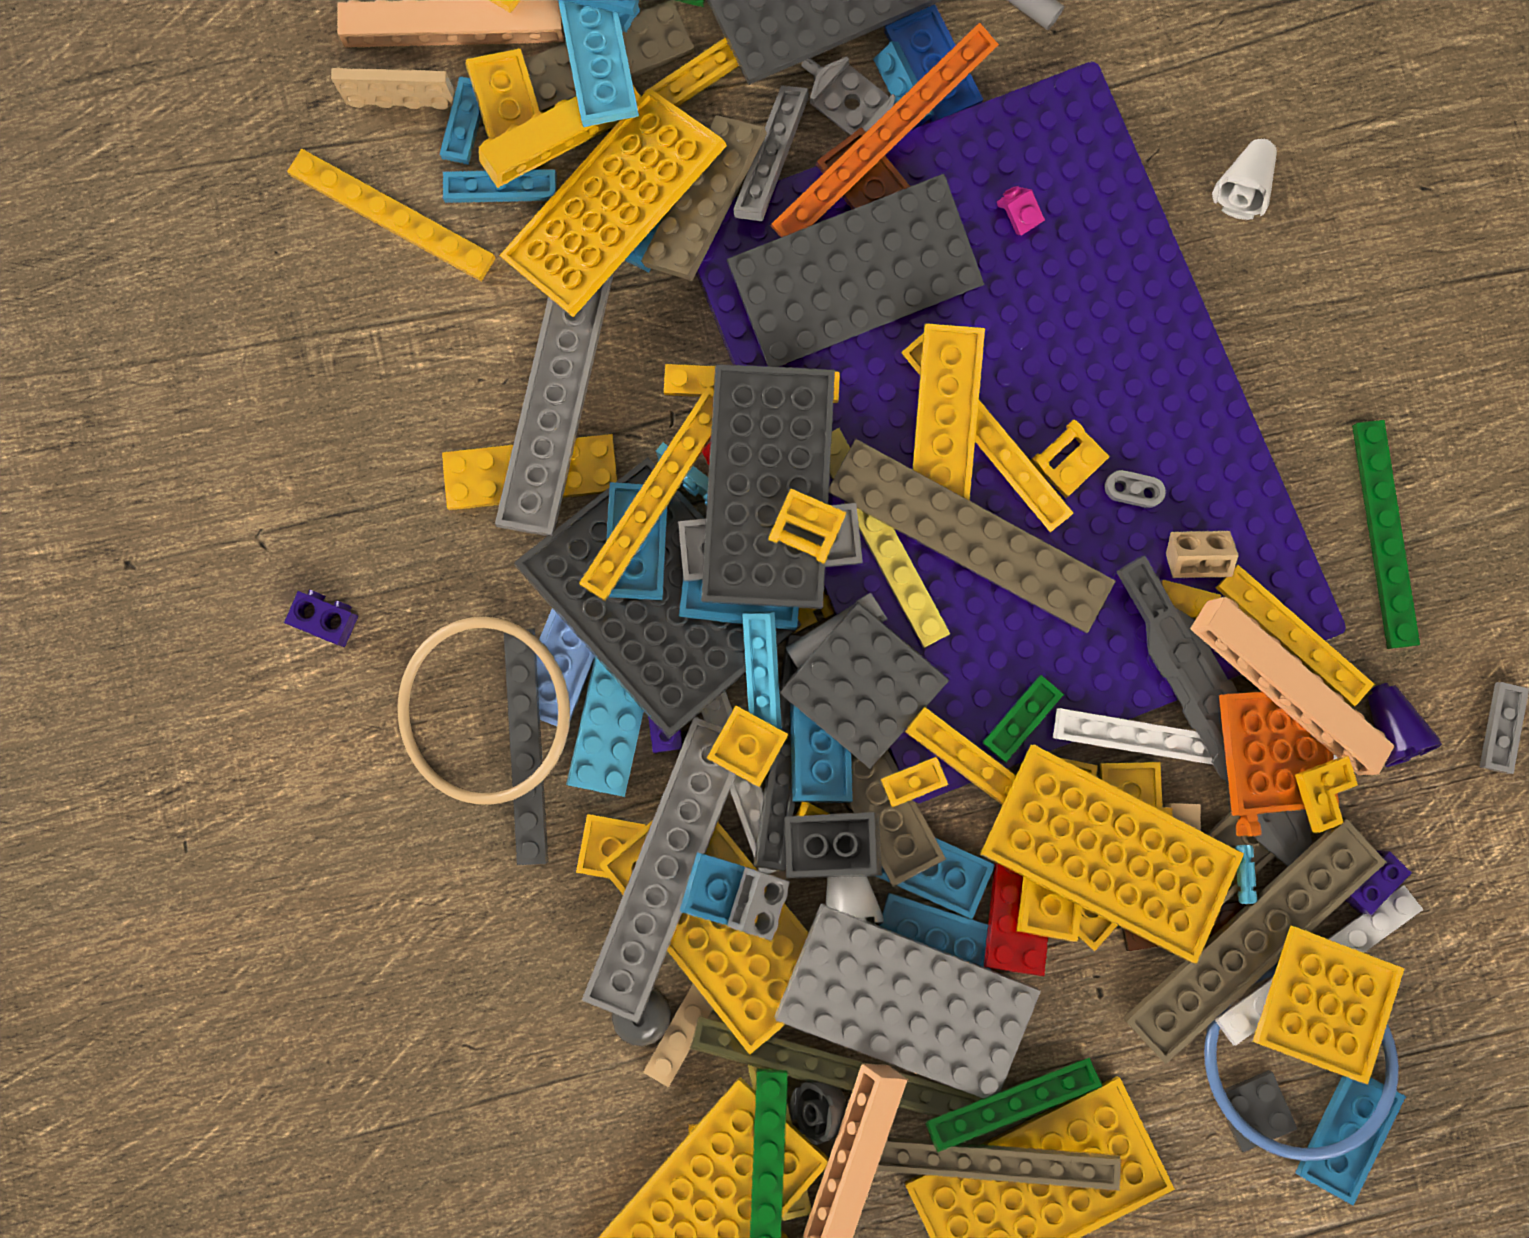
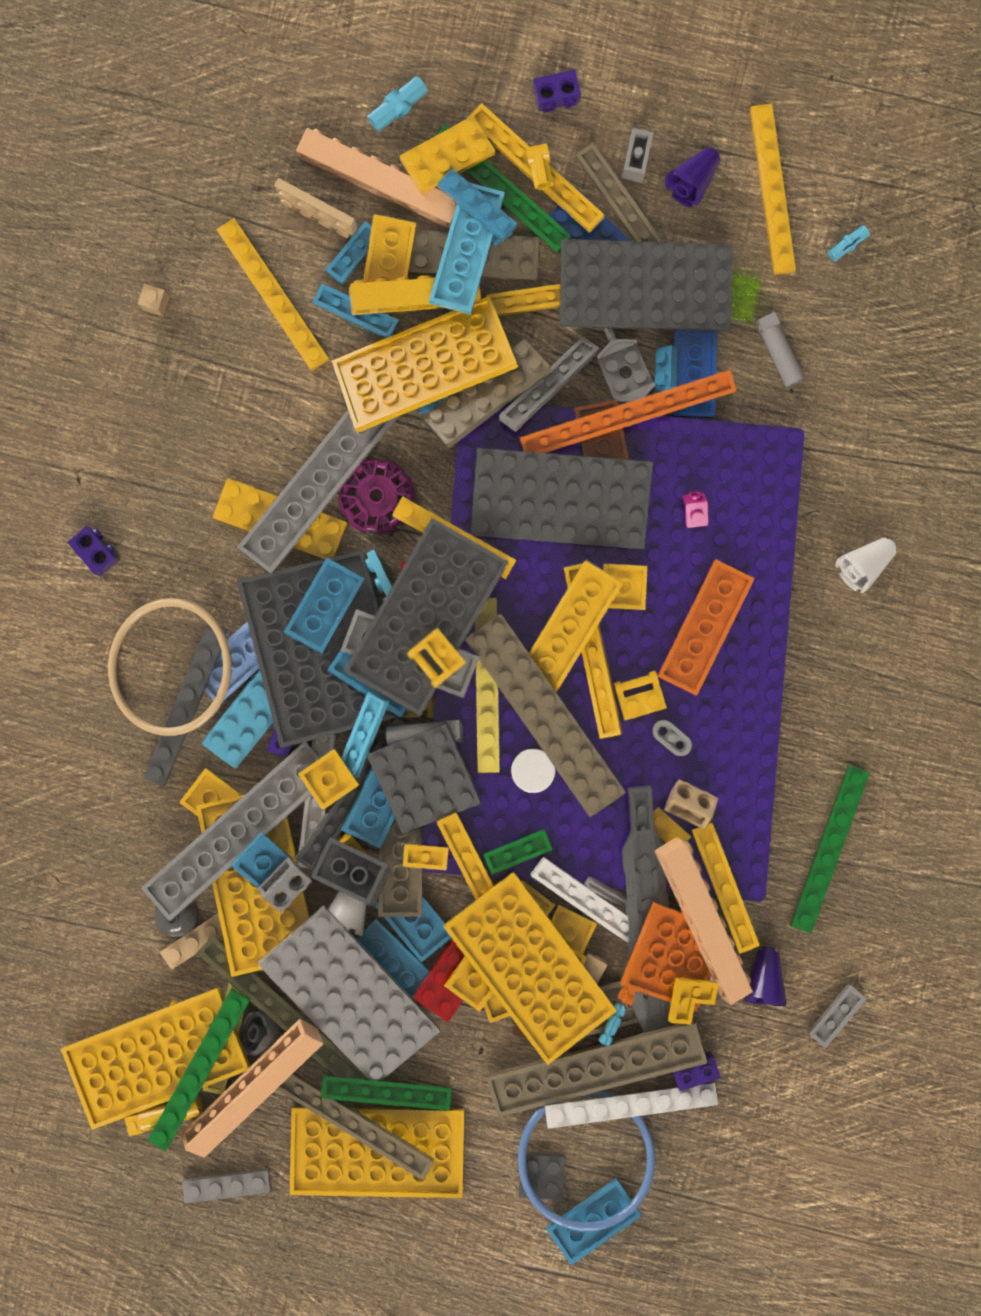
camera: 25 degrees right, 5 degrees up
(251, 287) = (153, 300): none -> tan brick
(630, 403) = (366, 487): none -> magenta plate
(651, 499) = (346, 585): yellow plate -> none
(989, 611) = (532, 770): none -> white tile
(999, 338) = (633, 591): none -> yellow plate
(1105, 339) = (705, 627): none -> orange plate
(1155, 715) = (605, 892): none -> light grey axle
(1328, 1005) = (620, 1133): yellow plate -> none

